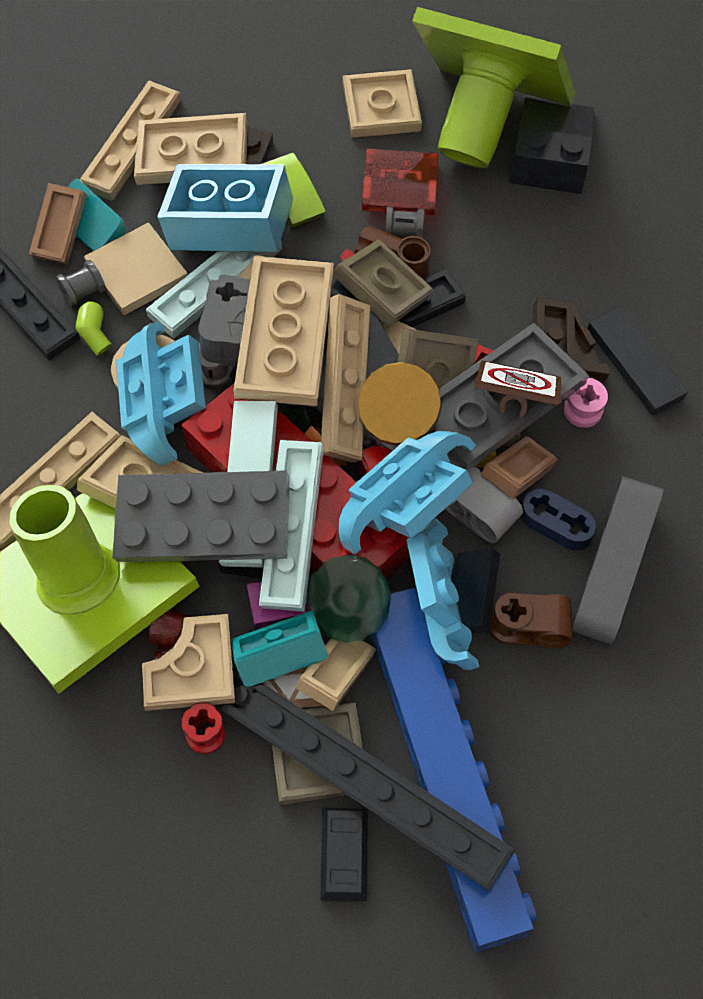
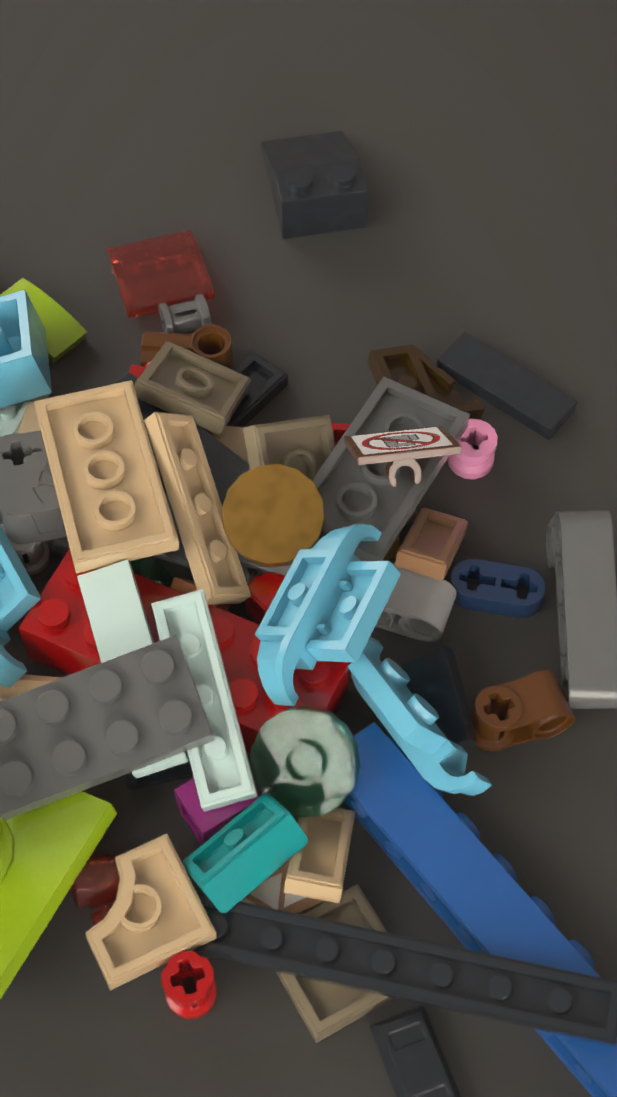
camera: 20 degrees left, 5 degrees down
(381, 103) = (101, 195): tan tile -> none
(490, 69) = (221, 116): lime piece -> none

